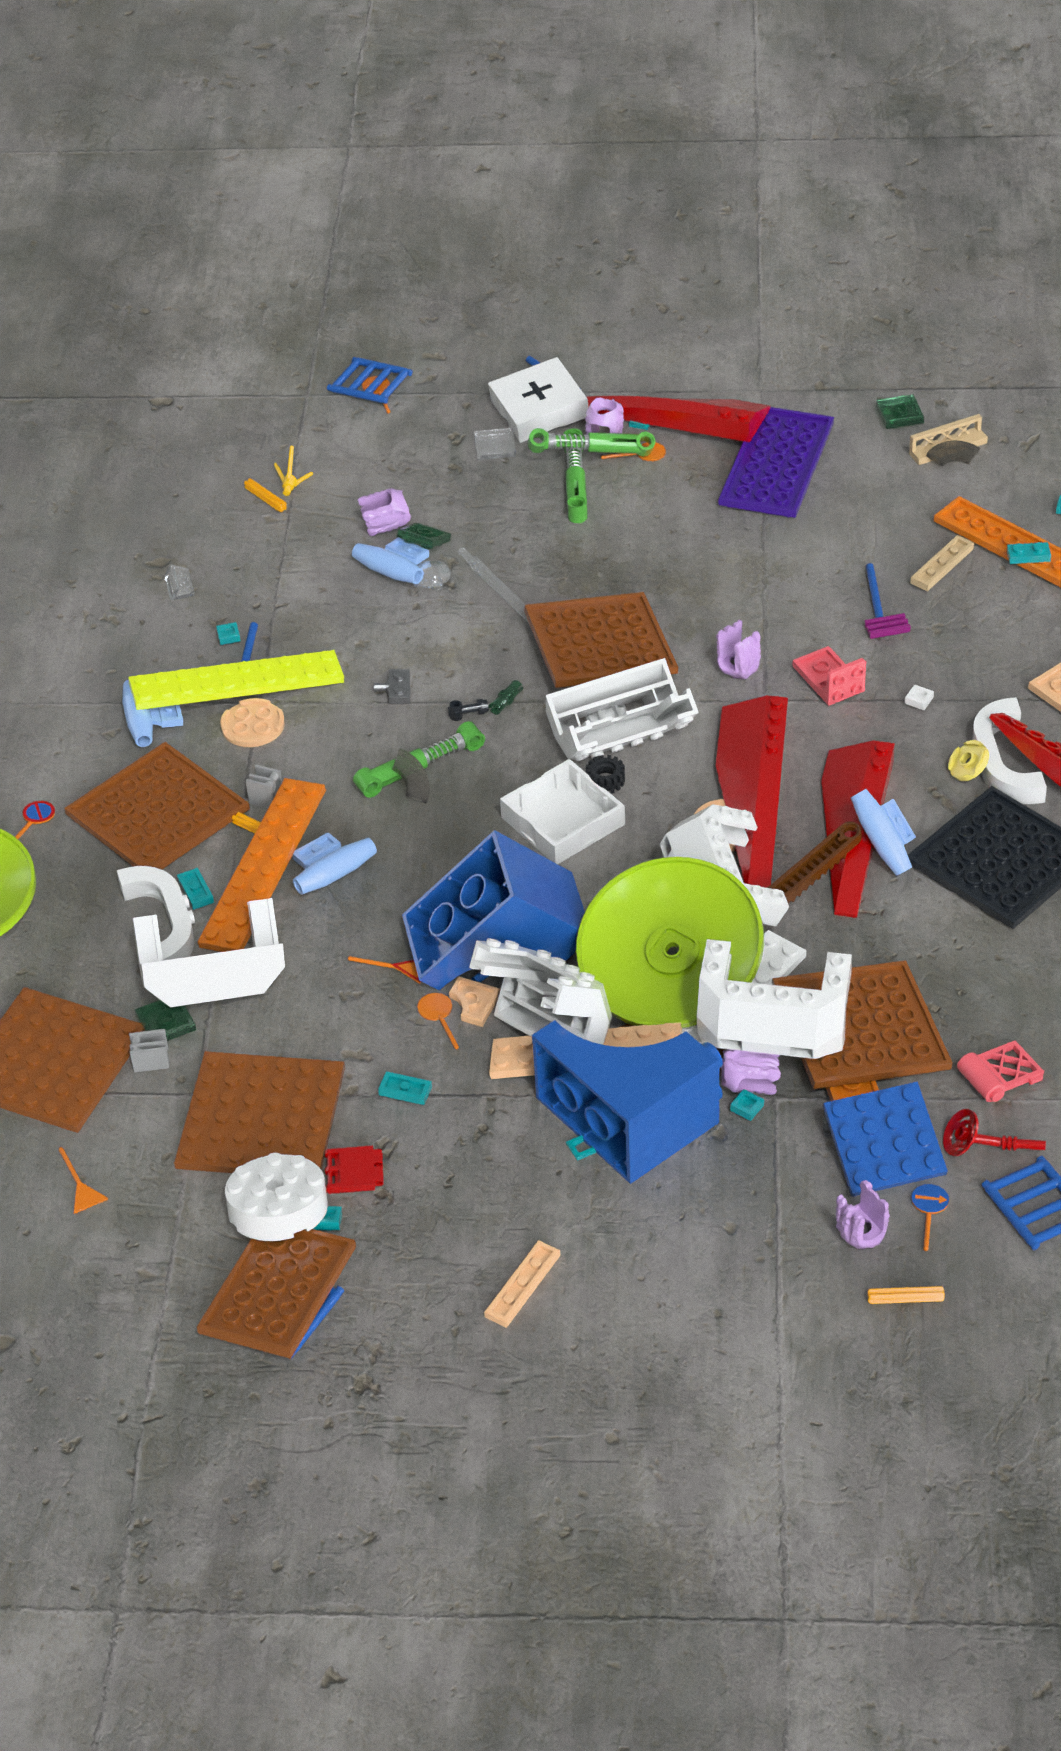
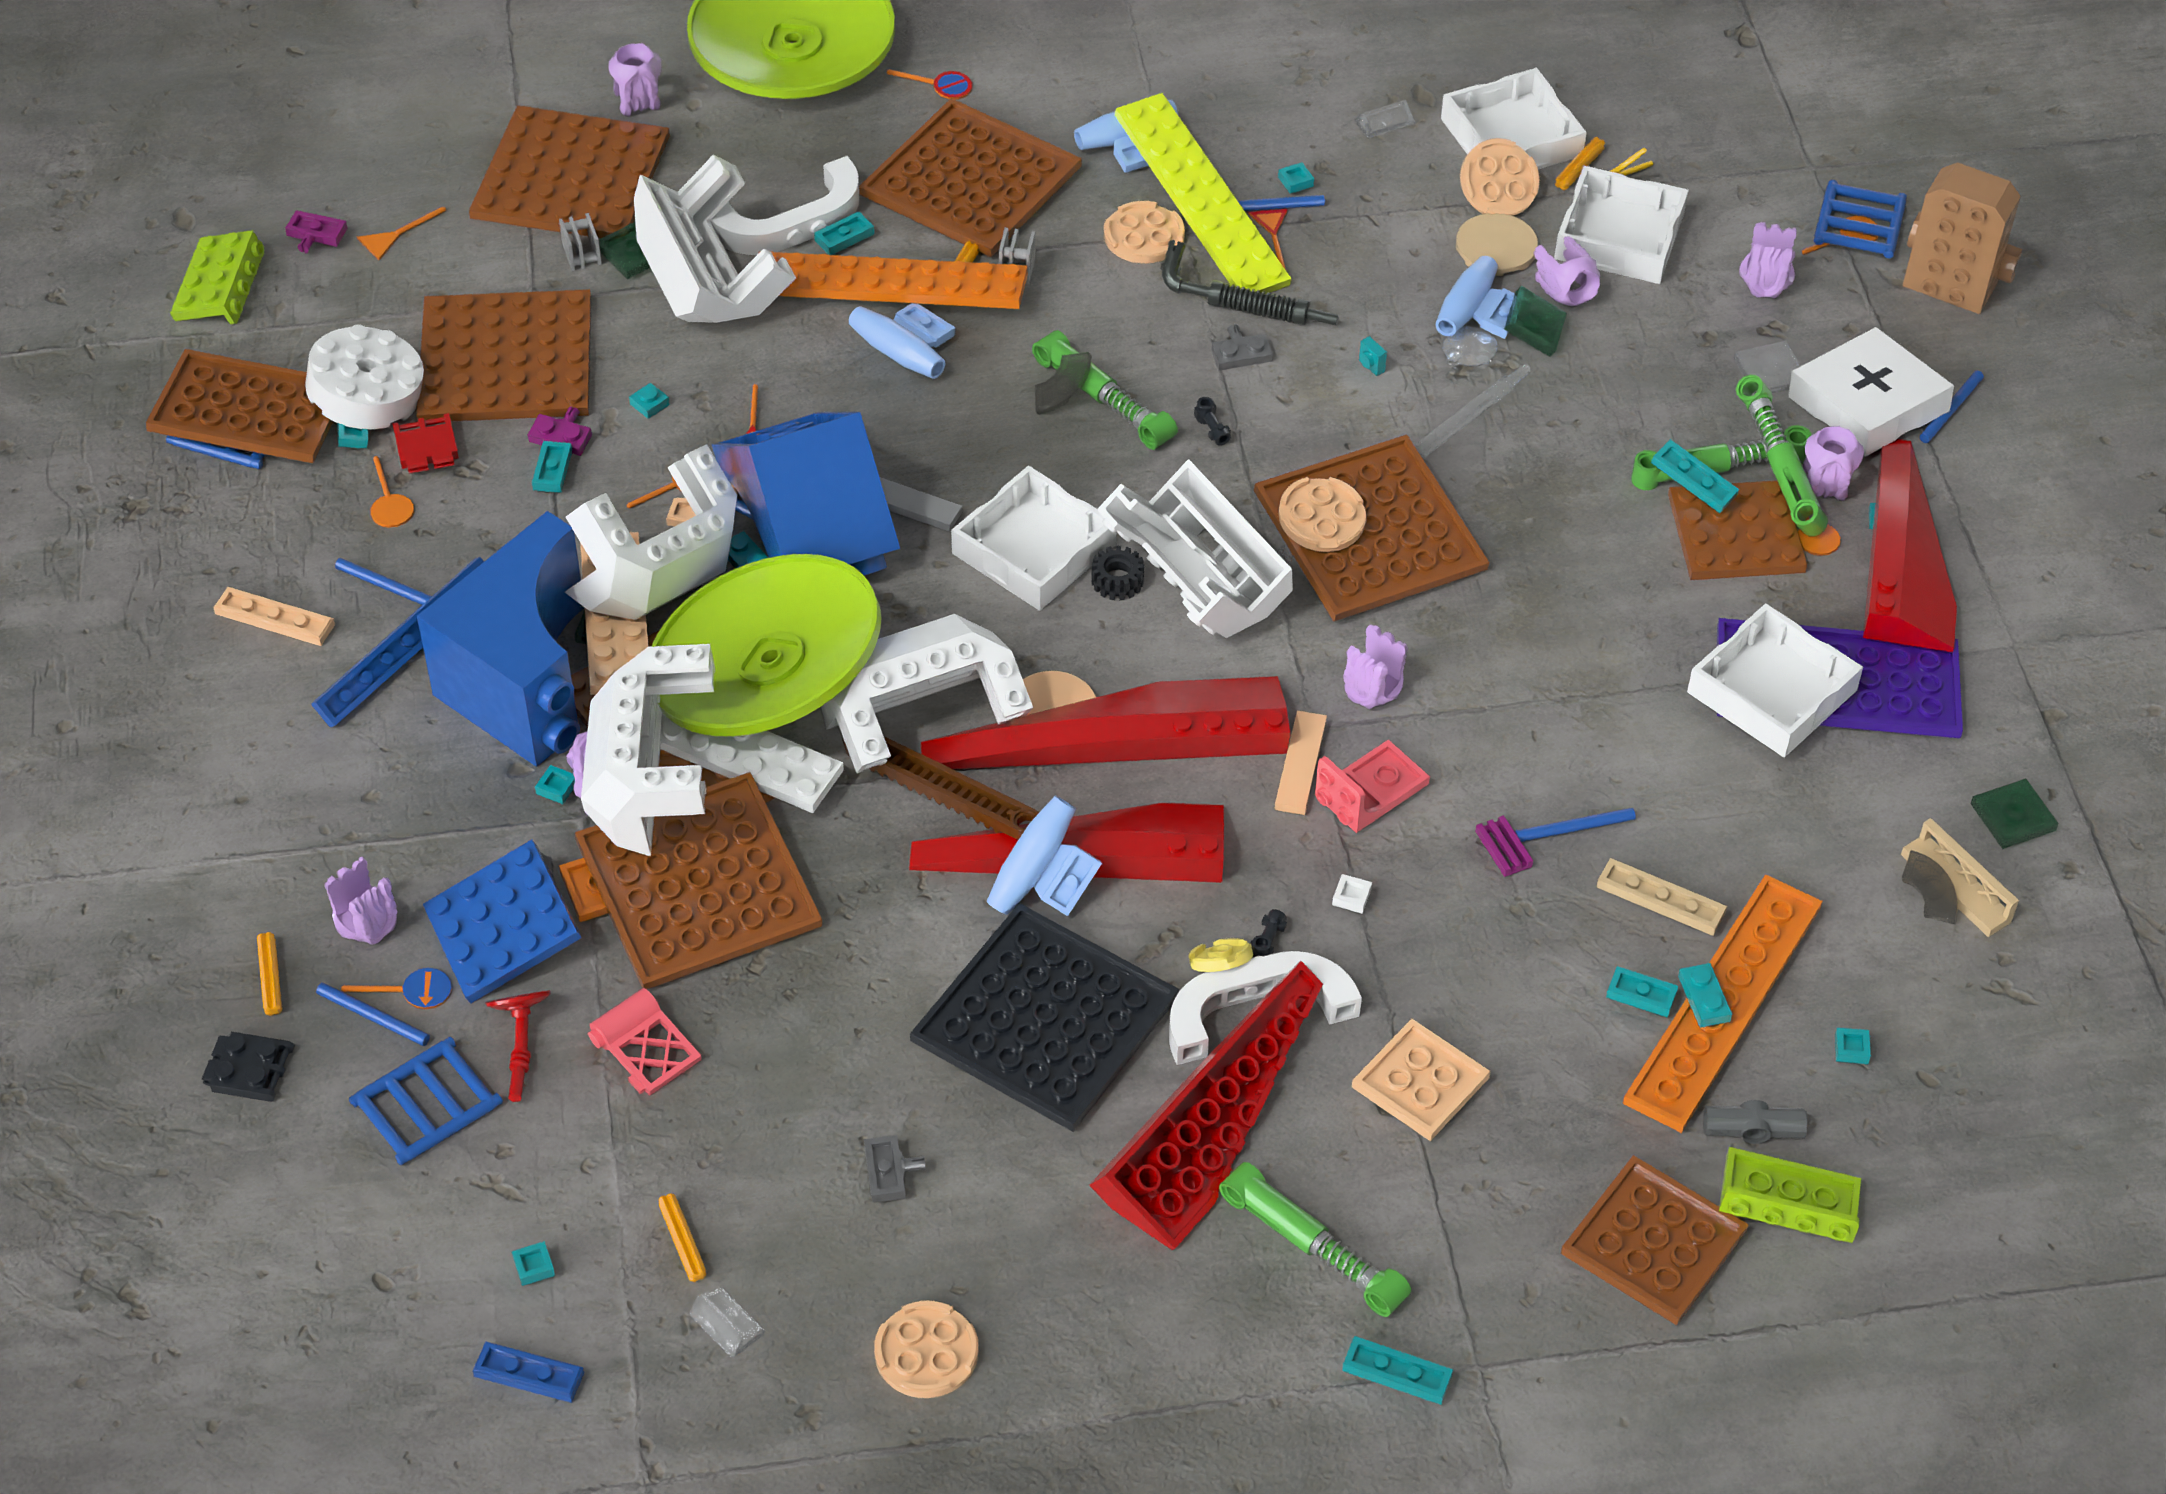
camera: 75 degrees right, 5 degrees up
(60, 1236) = (315, 228): none -> magenta plate
(96, 1311) = (219, 277): none -> lime bracket
(219, 517) = (1519, 110): none -> white tile
(260, 653) = (1271, 221): none -> orange piece
(277, 528) = (1499, 177): none -> light nougat tile
(330, 546) = (1499, 237): none -> tan tile
(337, 480) = (1624, 223): none -> white tile
(344, 1025) = (649, 400): none -> teal plate
(345, 679) = (1238, 298): none -> pearl dark grey piece
(364, 1083) = (561, 430): none -> magenta plate
(415, 1202) = (390, 509): none -> orange piece
(417, 418) = (1769, 264): none -> lavender piece
(429, 619) = (1373, 356): none -> teal plate
(435, 322) = (1963, 238): none -> medium nougat piece
(504, 1205) = (381, 581): none -> blue bar
(505, 697) = (1243, 455): clear green pin -> none
(581, 1193) = (379, 662): none -> blue plate
(591, 654) = (1322, 514): none -> light nougat tile
(600, 481) = (1695, 476): none -> teal plate
(636, 483) = (1743, 540): none -> dark orange plate
(786, 478) = (1774, 680): none -> white tile
(809, 710) = (1300, 762): none -> light nougat tile
(938, 736) = (1274, 922): none -> black bar
(951, 1233) = (373, 1014): none -> blue bar
(993, 1312) = (244, 1064): none -> black plate
(1016, 583) = (1642, 991): none -> teal plate

